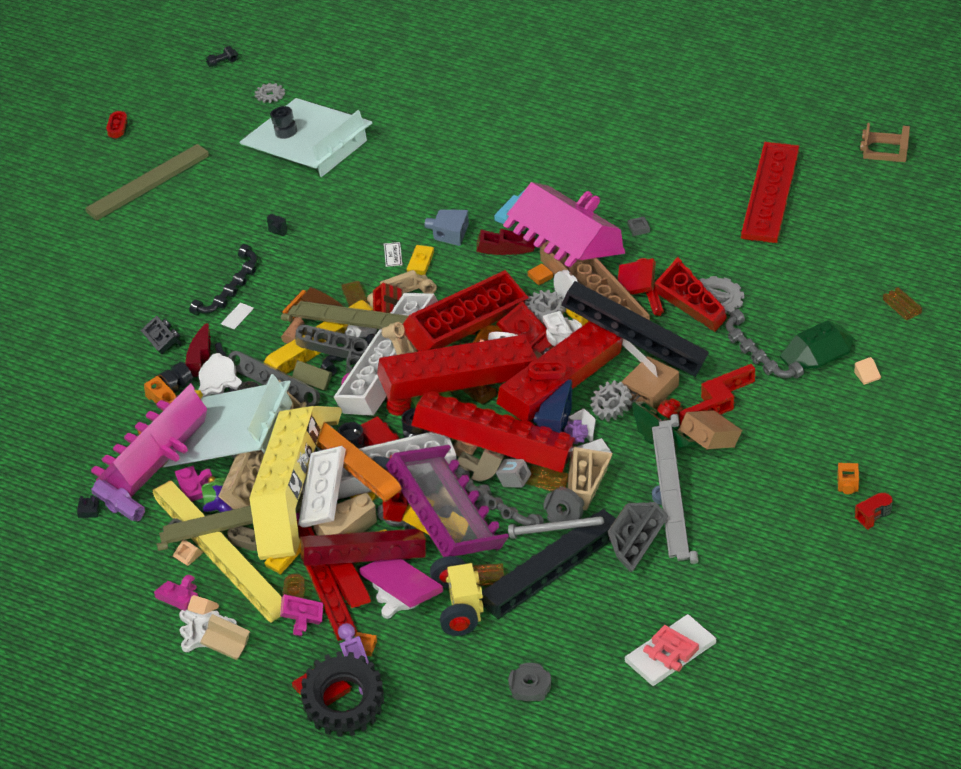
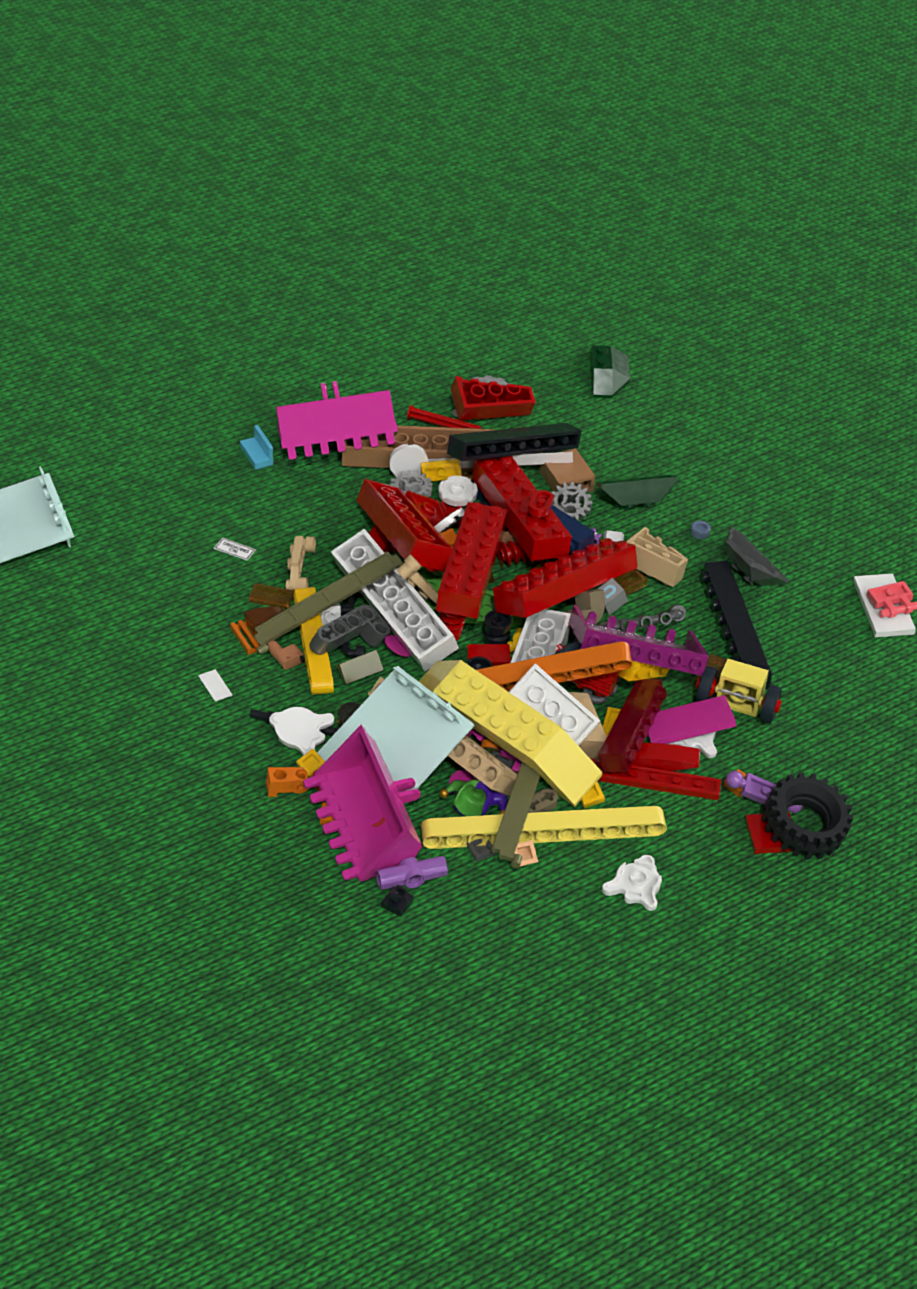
camera: 65 degrees left, 0 degrees up
(160, 334) = (197, 745): black bracket -> none
(177, 377) = (275, 754): black wheel -> none
(177, 595) = (579, 882): dark pink plate -> none
(192, 484) = (422, 810): dark pink plate -> none
(199, 350) = (251, 728): dark red slope -> none
(201, 605) = (611, 869): light nougat slope -> none
(225, 637) = (667, 868): tan panel -> none
(230, 289) = (168, 660): black bar -> none
(261, 373) = (335, 694): dark grey plate -> none
(277, 225) = (119, 600): black plate -> none
(294, 586) = (635, 796): clear orange plate -> none
(302, 611) = (678, 801): dark pink plate -> none
(386, 297) = (318, 572): red brick -> none
(420, 259) = (265, 534): yellow plate -> none
(449, 226) = (243, 495): sand blue torso -> none
(503, 243) = (299, 474): dark red slope -> none
(514, 531) = (700, 600): light grey bar -> none
(529, 692) = (866, 709): dark grey plate -> none
(540, 274) = (359, 473): orange tile -> none
(557, 324) = (451, 487): white tile -> none
(567, 497) = (673, 582): dark grey plate -> none
(637, 276) = (430, 415): red tile -> none
(638, 226) = (355, 389): dark grey tile -> none
(669, 407) = (611, 474): red plate -> none
(670, 491) = (711, 515): light grey piece -> none
(710, 429) = (663, 463): medium nougat brick -> none
(718, 394) = (615, 445): red bracket -> none
(758, 356) = (586, 404): dark grey bar -> none
(770, 192) = (393, 306): red plate -> none
(848, 482) = (772, 424): orange brick -> none
(866, 371) = (655, 361): light nougat slope -> none
(873, 508) = (815, 431): red leg -> none
(887, 138) = (404, 215): medium nougat panel -> none
(905, 302) = (592, 308): clear orange tile -> none

